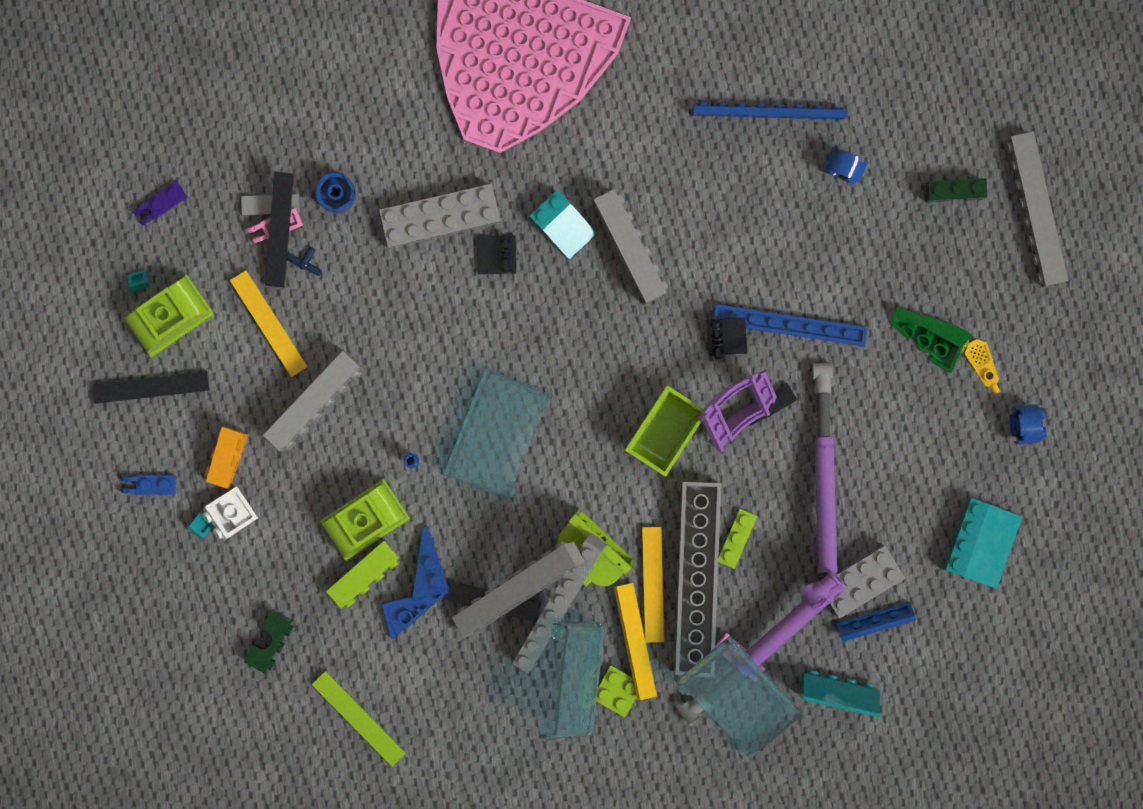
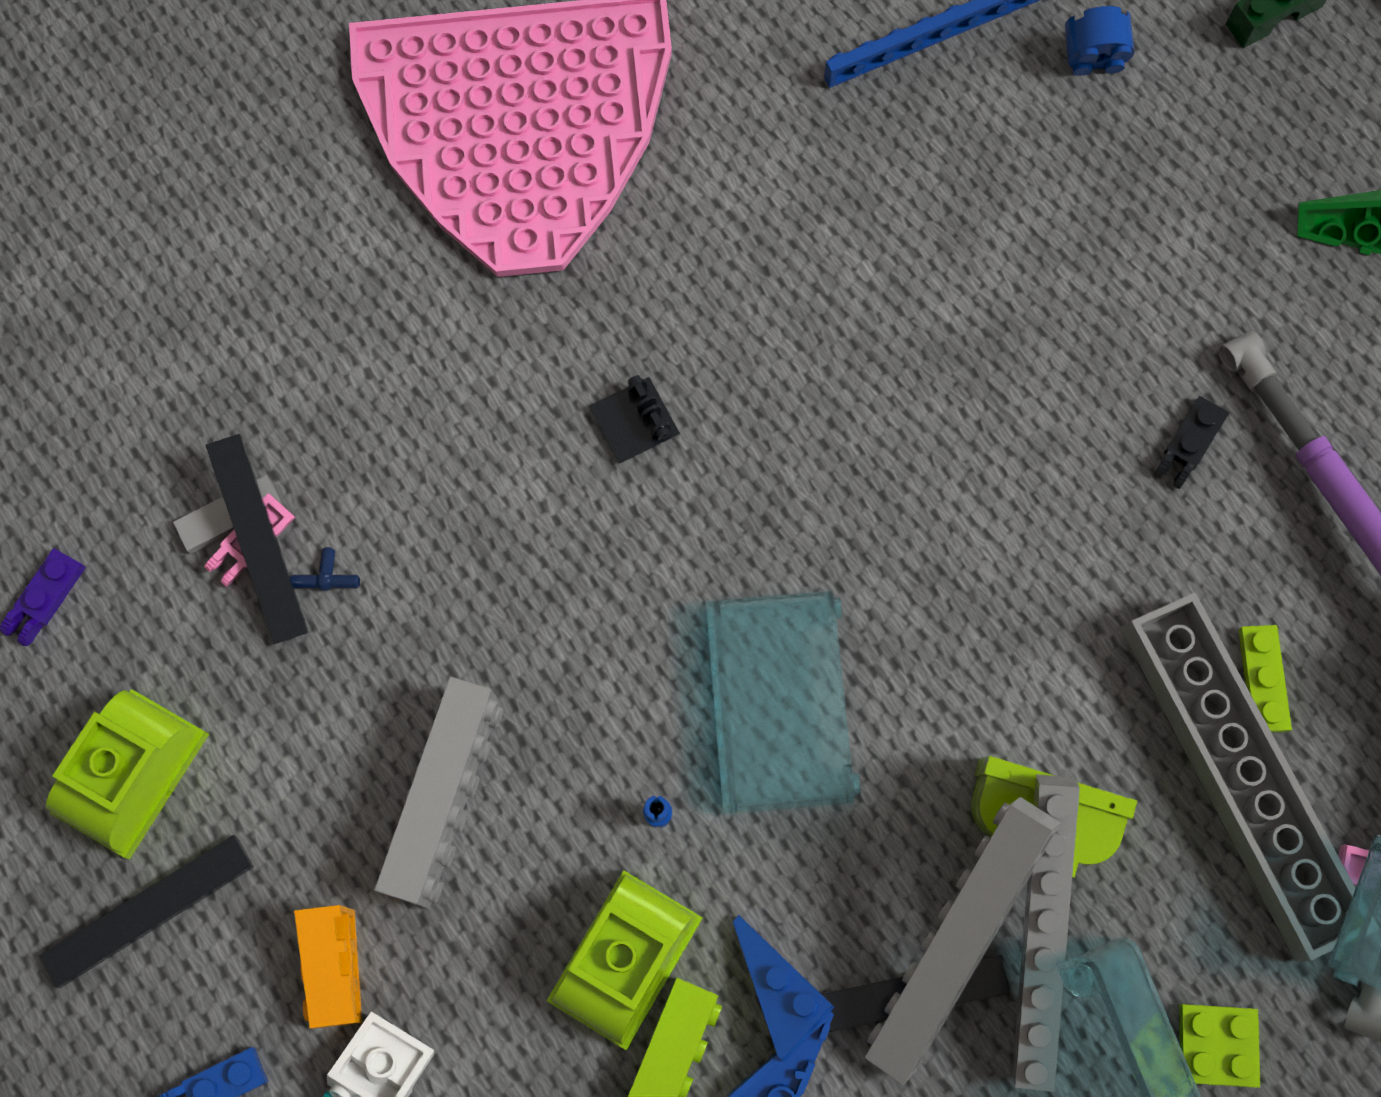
camera: 25 degrees left, 15 degrees down
(138, 281) = (52, 739): teal plate -> none
(269, 323) = (309, 705): yellow tile -> none
(325, 191) = (345, 441): blue brick -> none
(440, 216) = (513, 400): light grey brick -> none
(563, 224) = (714, 324): slope -> none
(628, 243) = (841, 301): light grey brick -> none
(635, 641) = (1203, 941): yellow tile -> none
(653, 584) = (1174, 827): yellow tile -> none
(665, 431) = (1061, 547): lime container -> none
(721, 431) = (1152, 500): medium lavender wedge -> none
(726, 337) = (1065, 368): black hinge -> none
(795, 325) = (1150, 308): blue plate -> none

